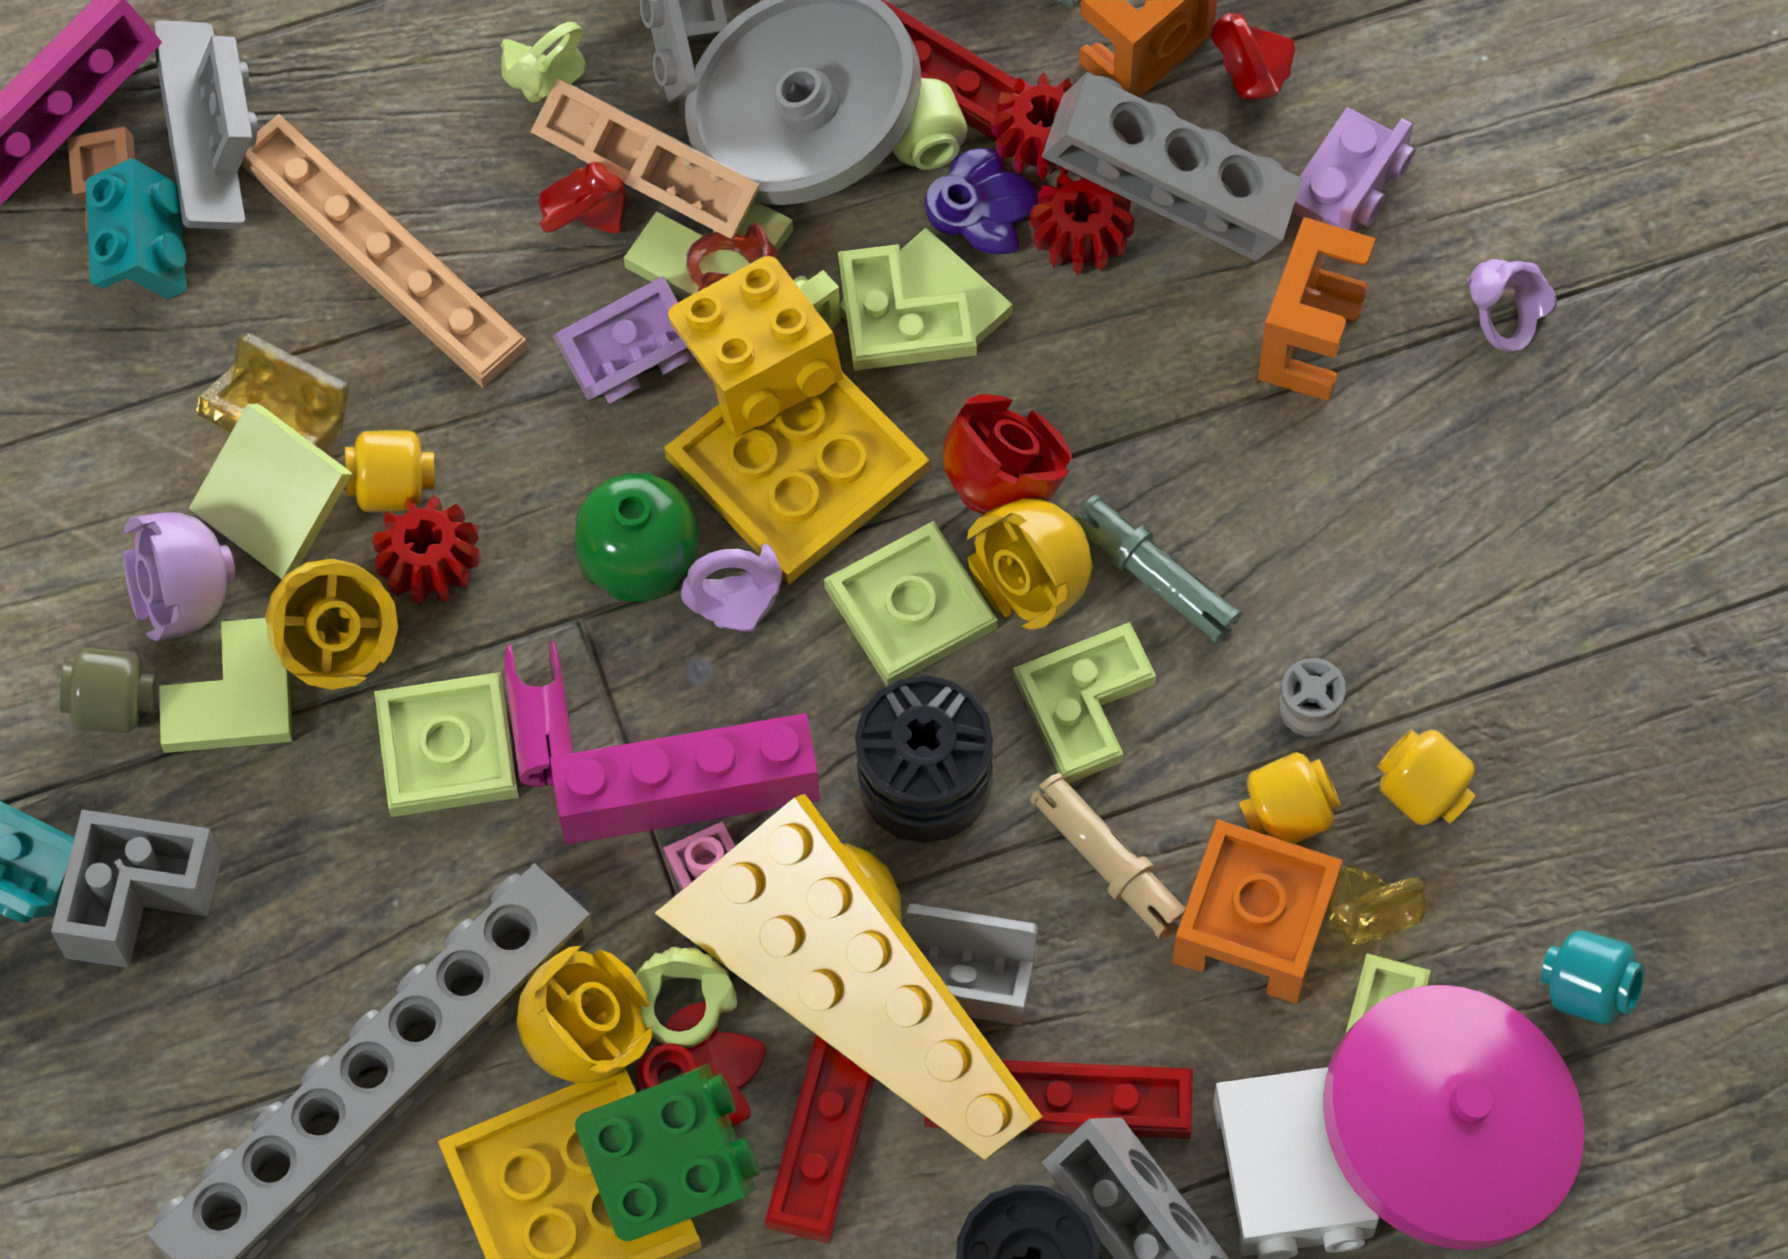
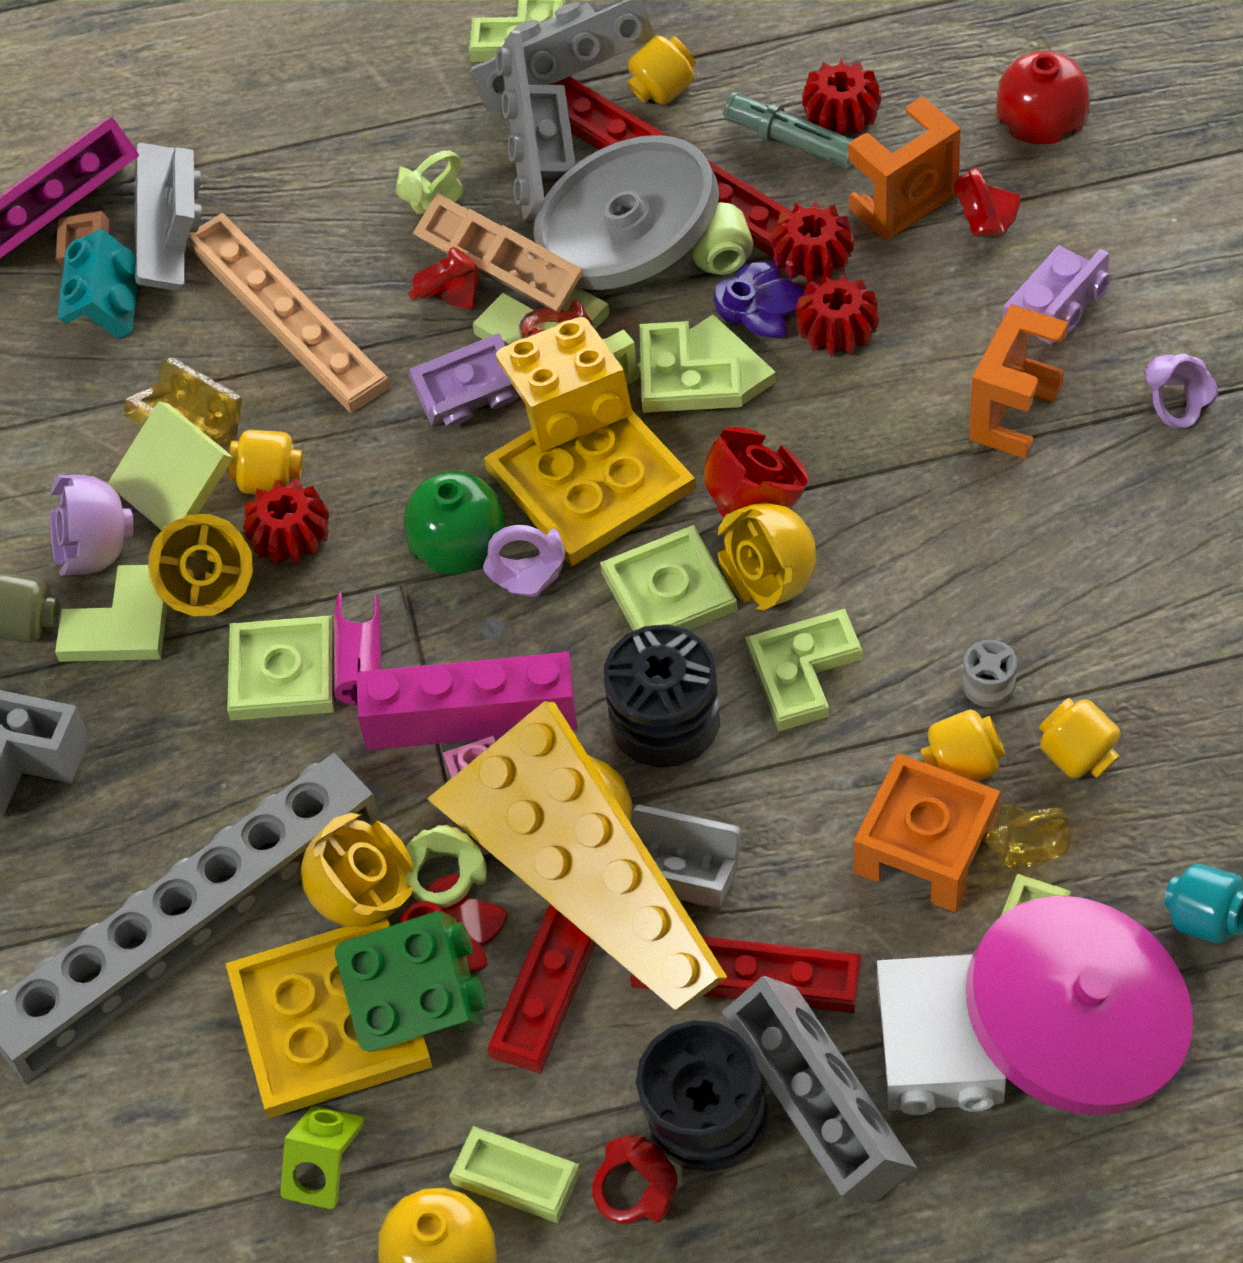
camera: 10 degrees right, 10 degrees down
(1128, 876) = (822, 799): tan pin -> none
(1135, 552) = (854, 556): sand green pin -> none
(1141, 171) = (911, 272): light grey brick -> none

